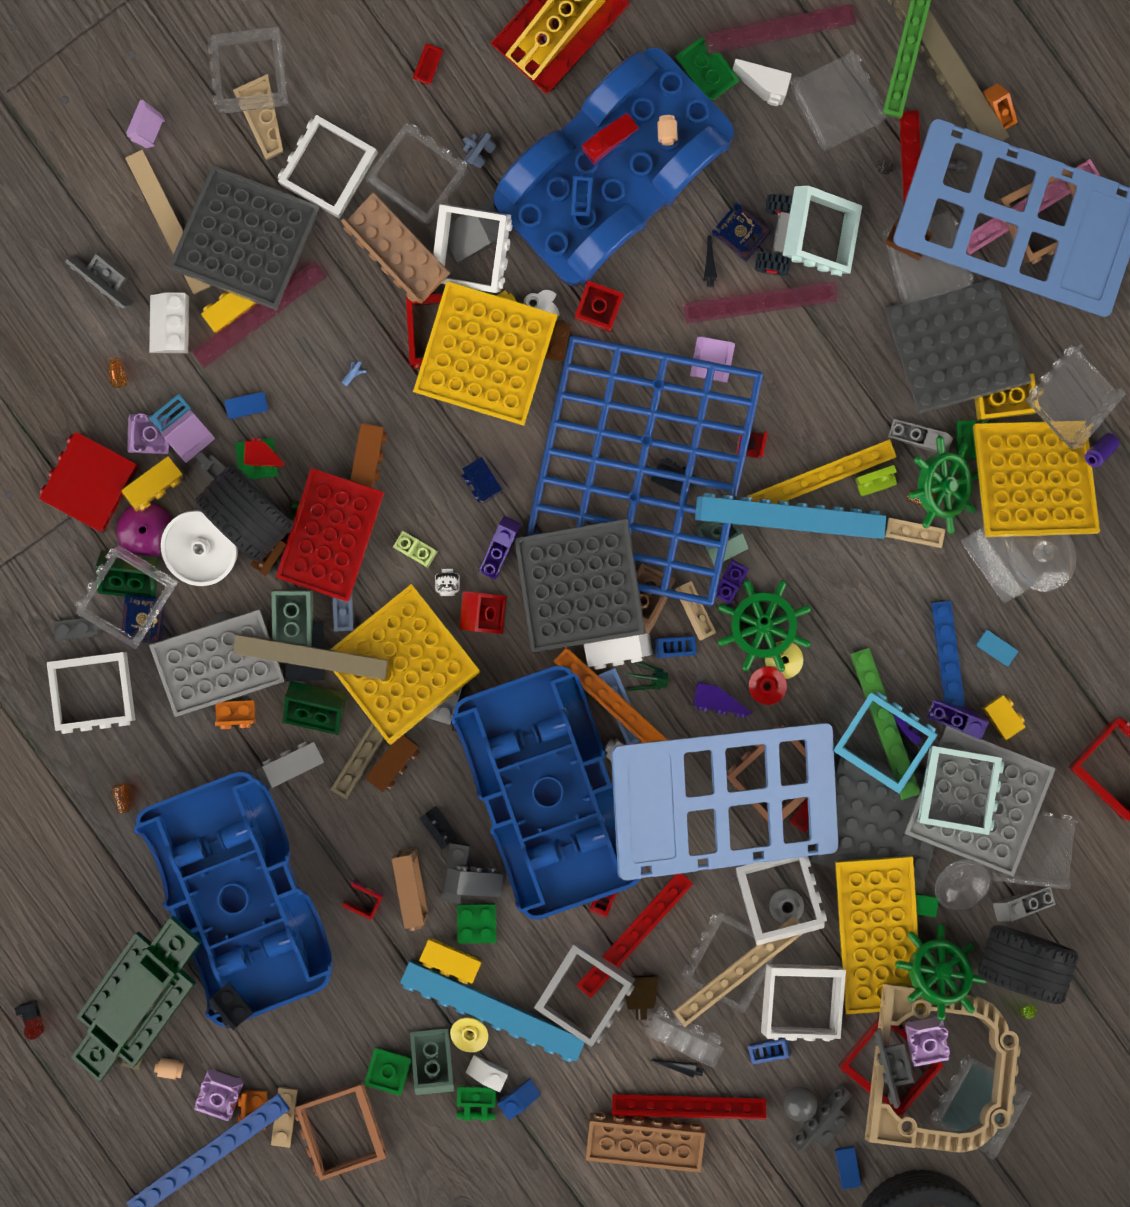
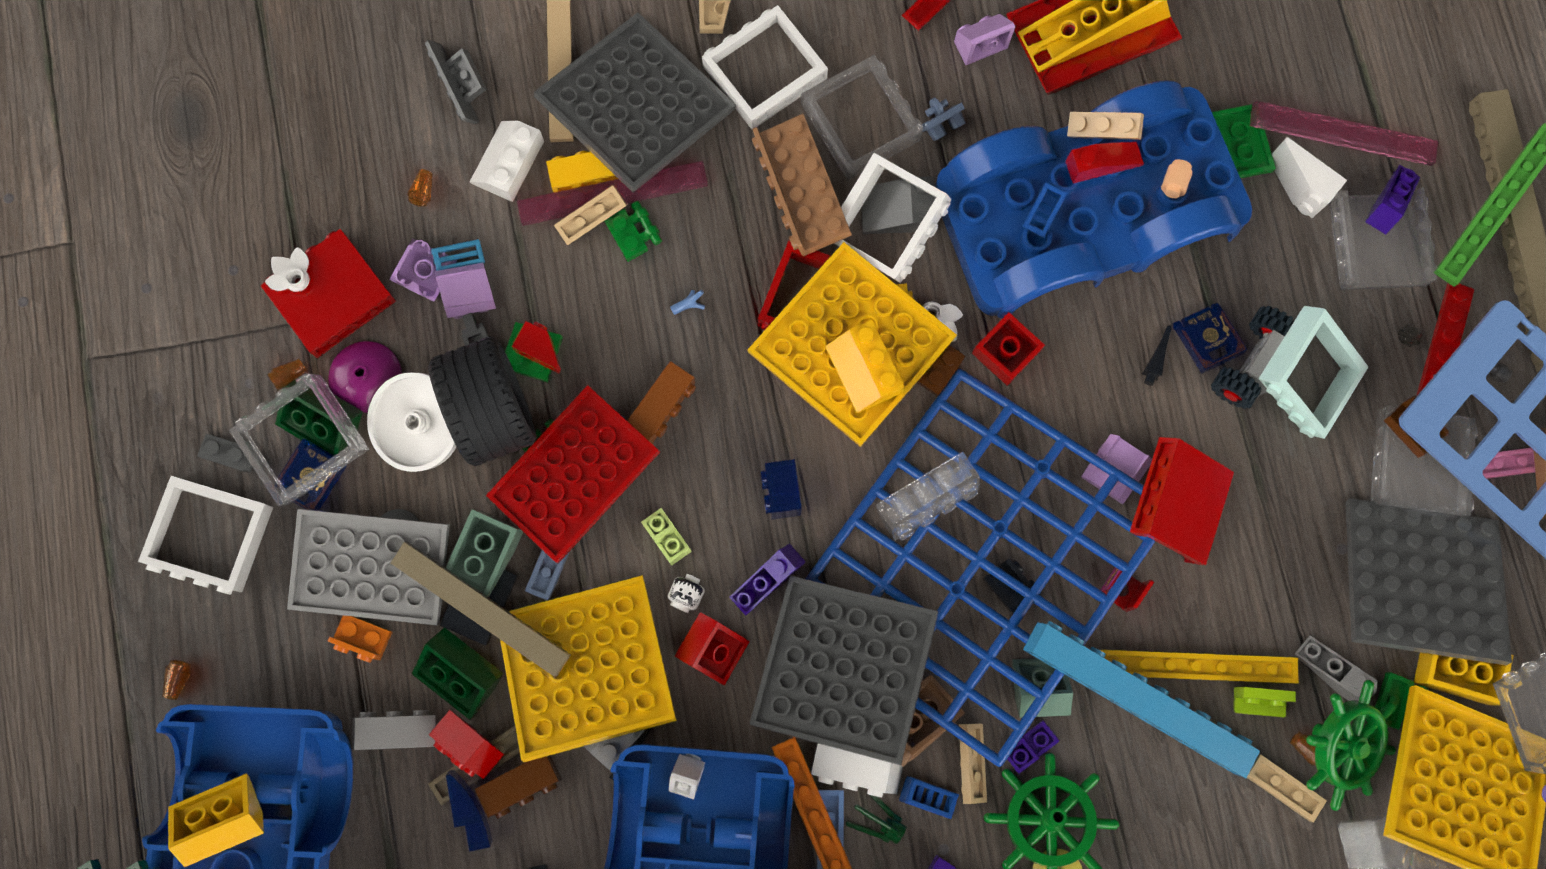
camera: 25 degrees right, 10 degrees down
(54, 478) = (288, 270): none -> white plate
(88, 554) = (286, 373): none -> clear orange cone
(152, 484) = (397, 326): yellow brick -> none
(206, 870) = (214, 820): none -> yellow slope
(246, 405) = (548, 285): blue slope -> none
(252, 339) = (590, 215): none -> tan plate
(267, 562) = (488, 471): reddish brown bracket -> none
(284, 341) = (626, 235): none -> green plate
(345, 752) = (465, 746): none -> red brick
(367, 795) = (468, 812): none -> clear blue slope
(481, 71) = (984, 38): none -> lavender slope
(502, 368) = (864, 367): none -> yellow slope
(504, 704) = (686, 775): none -> white slope
(587, 441) = (928, 497): none -> clear brick
(599, 111) = (1105, 125): none -> tan plate
(760, 303) = (1201, 427): clear pink plate -> none
(765, 364) = (1182, 500): none -> red panel
(834, 67) = (1393, 200): none -> dark purple slope

